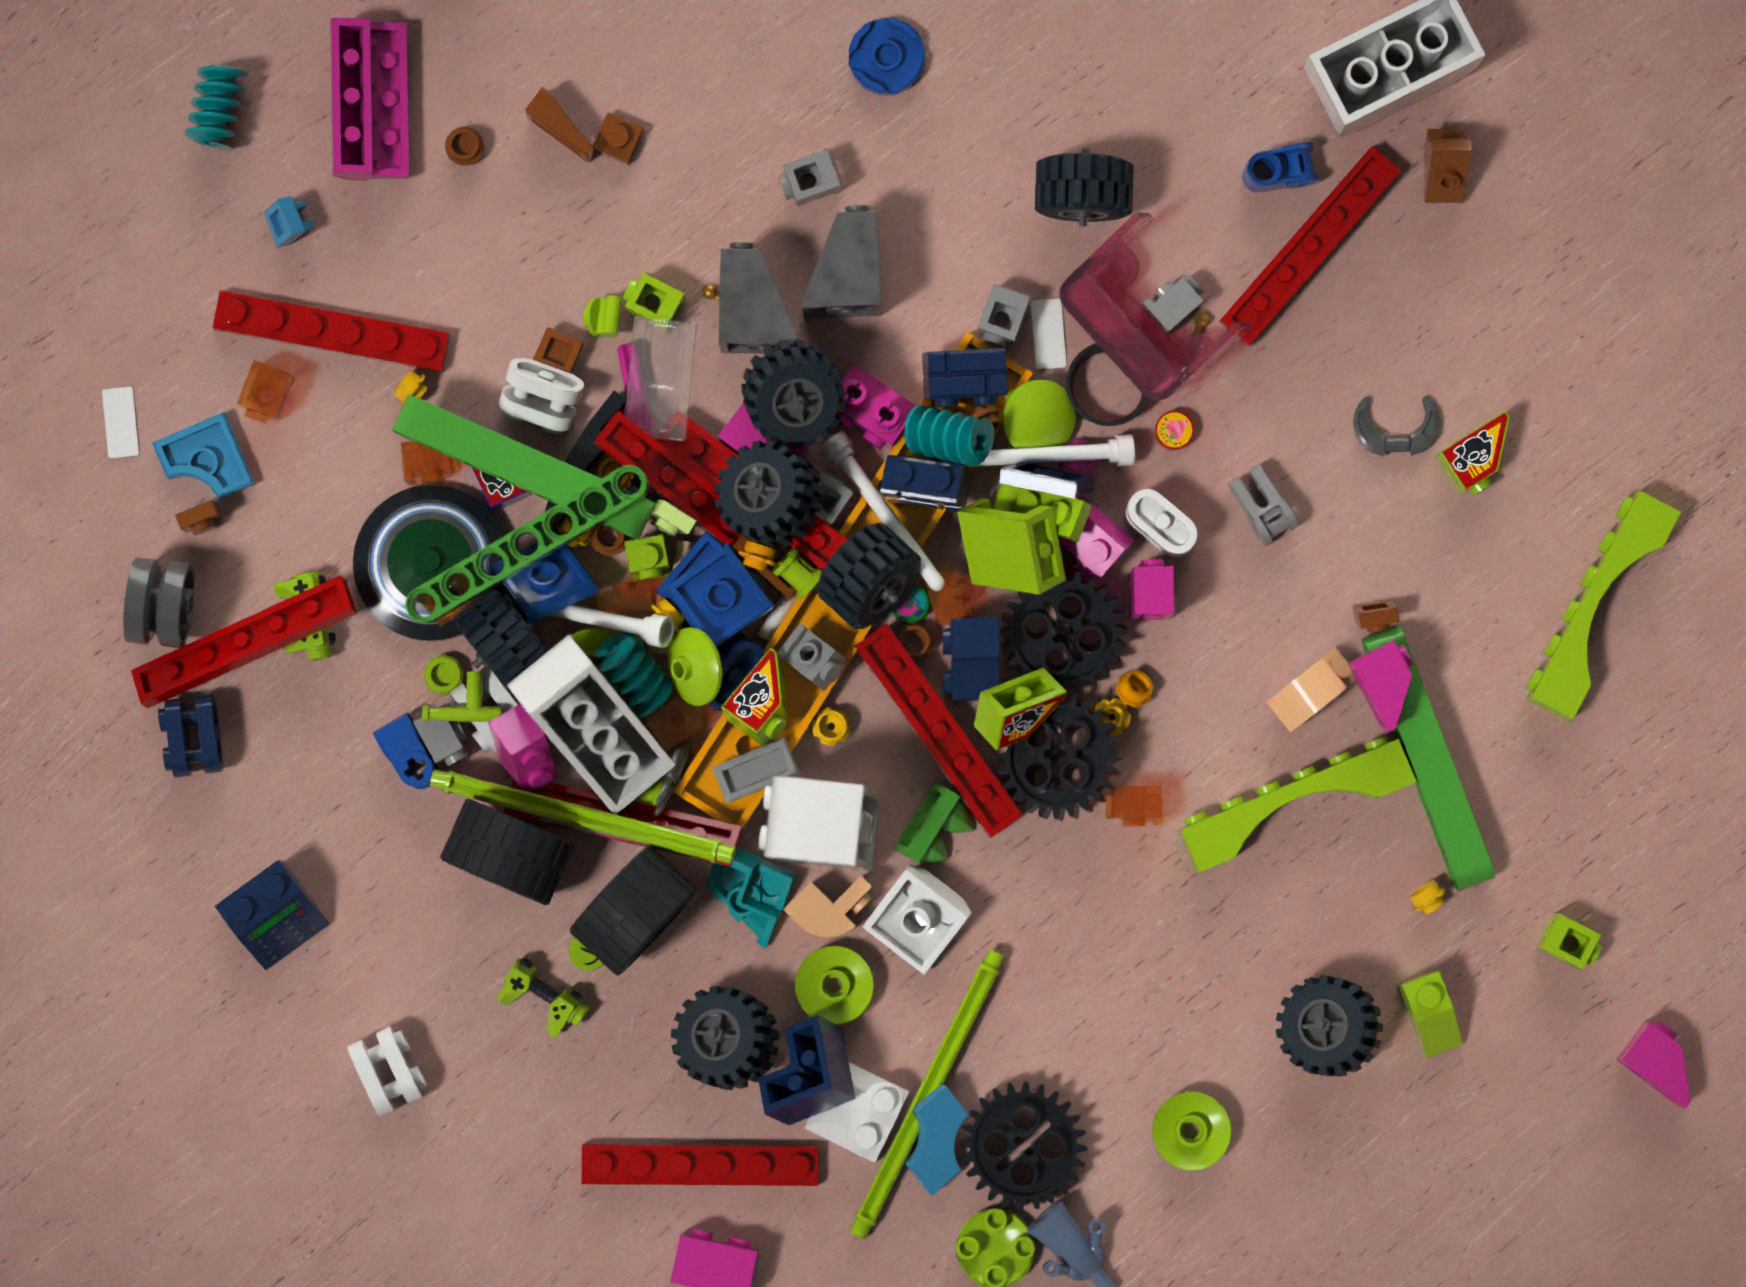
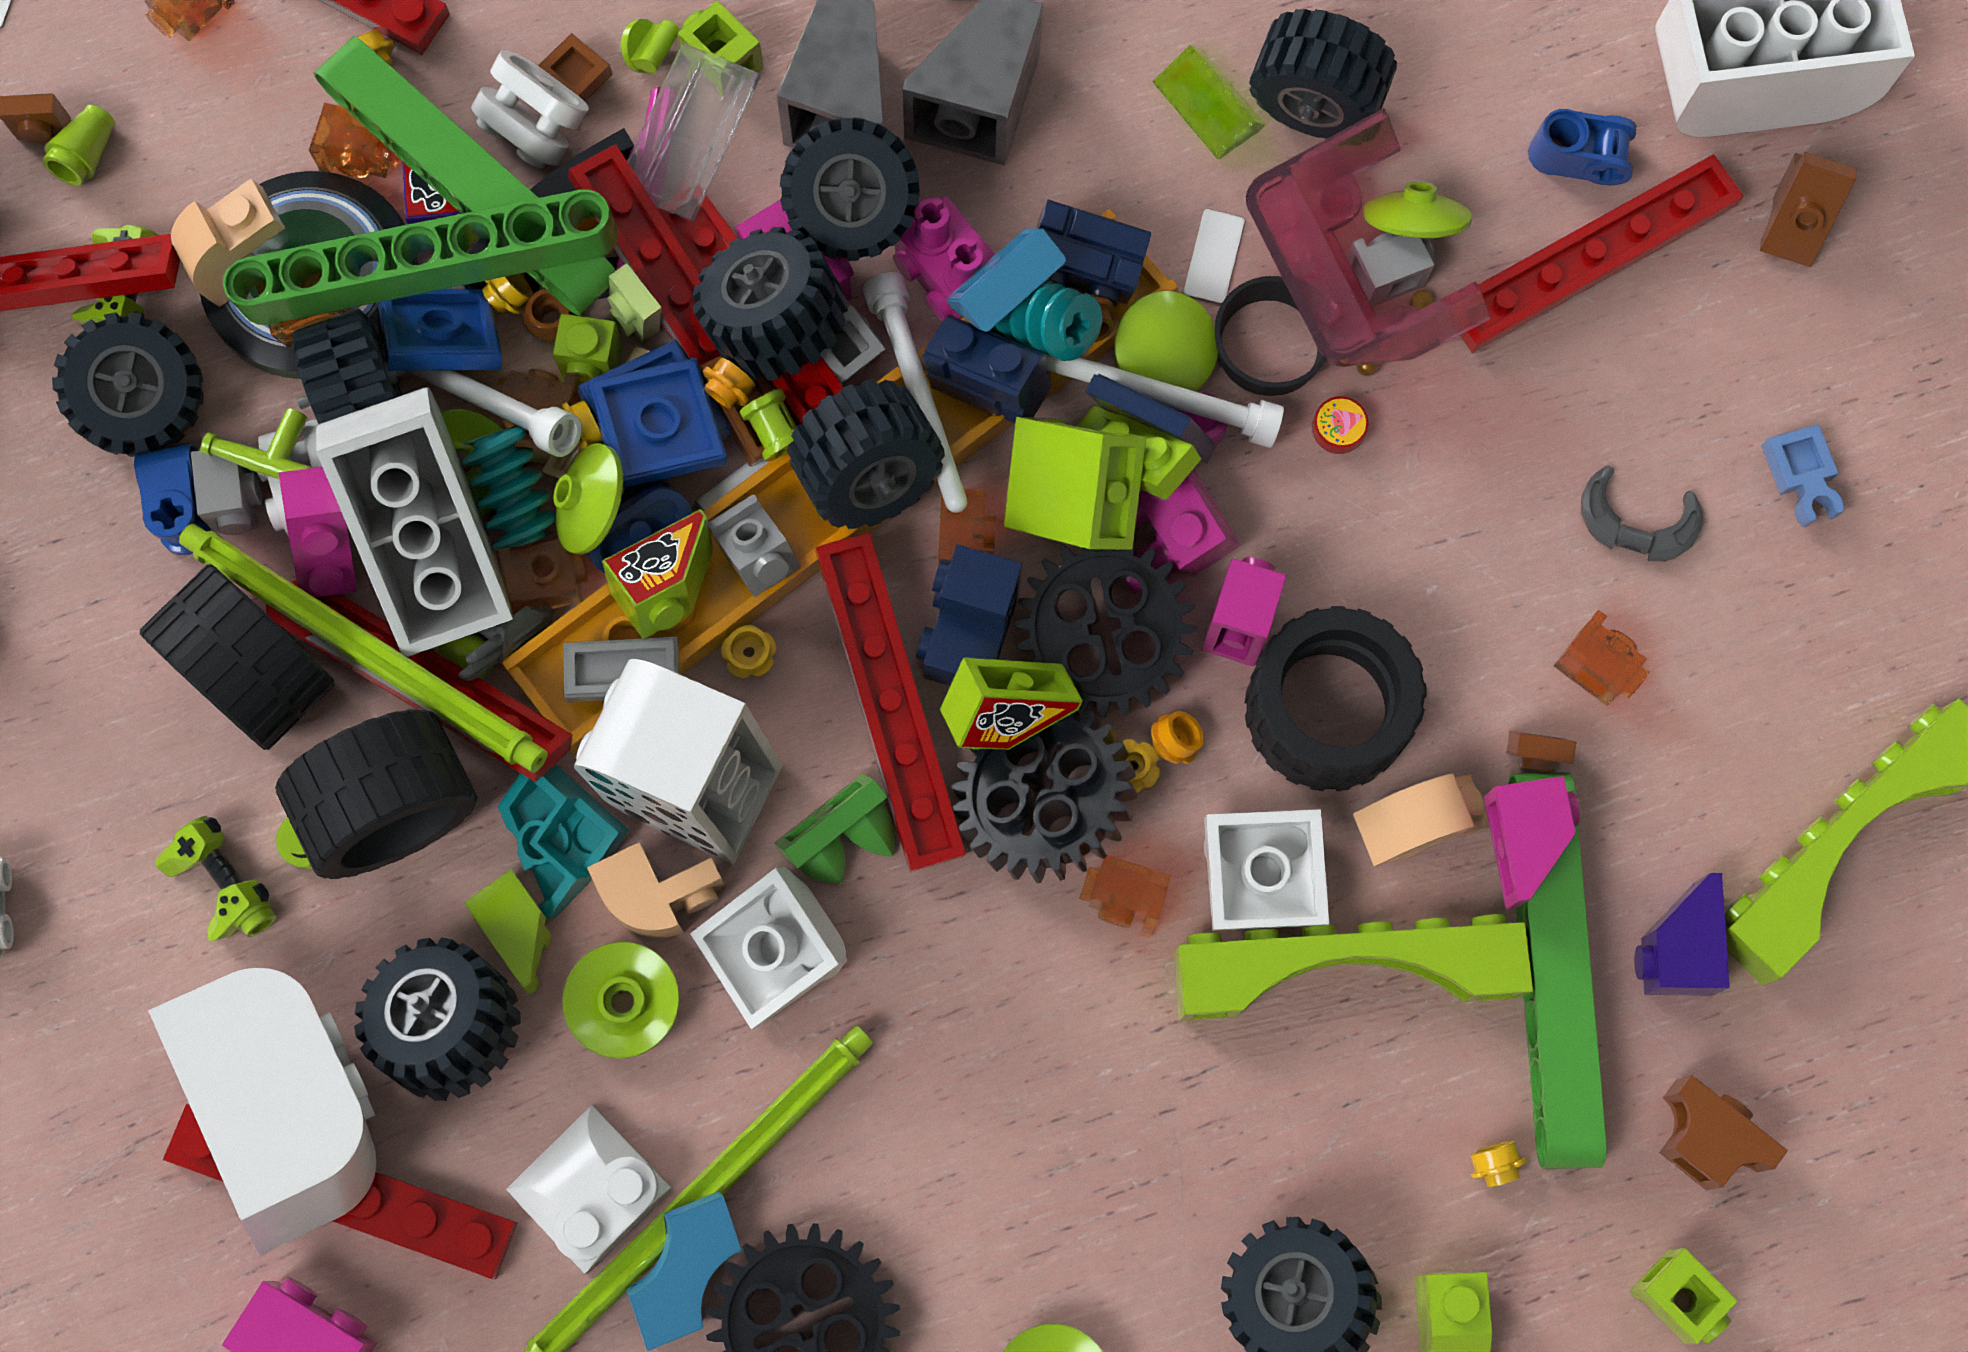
camera: 15 degrees right, 10 degrees down
(206, 453) = (83, 51): dark azure tile -> none
(237, 526) = (79, 146): none -> lime cone
(352, 689) = (128, 384): none -> black wheel
(379, 573) = (223, 234): none -> light nougat brick
(443, 674) = (260, 413): lime tile -> none
(643, 1125) = (272, 1101): none -> white brick
(745, 960) = (513, 926): none -> lime slope
(817, 1073) = (542, 1118): dark blue brick -> none
(913, 606) = (913, 531): tile -> none
(920, 423) = (1007, 279): none -> dark azure slope
(926, 637) = (913, 567): dark orange plate -> none
(1002, 302) = (1167, 192): light grey brick -> none
(1008, 220) = (1208, 102): none -> clear neon green slope
(1161, 523) = (1285, 528): white brick -> none
(1180, 263) = (1417, 212): none -> lime dish
(1221, 760) = (1266, 869): none -> white slope
(1244, 585) = (1375, 648): none -> black tyre
(1261, 517) = (1427, 575): light grey piece -> none
(1400, 540) = (1603, 661): none -> clear orange brick
(1475, 456) = (1737, 584): slope -> none
(1494, 353) = (1804, 465): none -> medium blue plate
(1508, 714) = (1687, 945): none -> dark purple slope
(1560, 833) = (1715, 1135): none -> dark orange brick

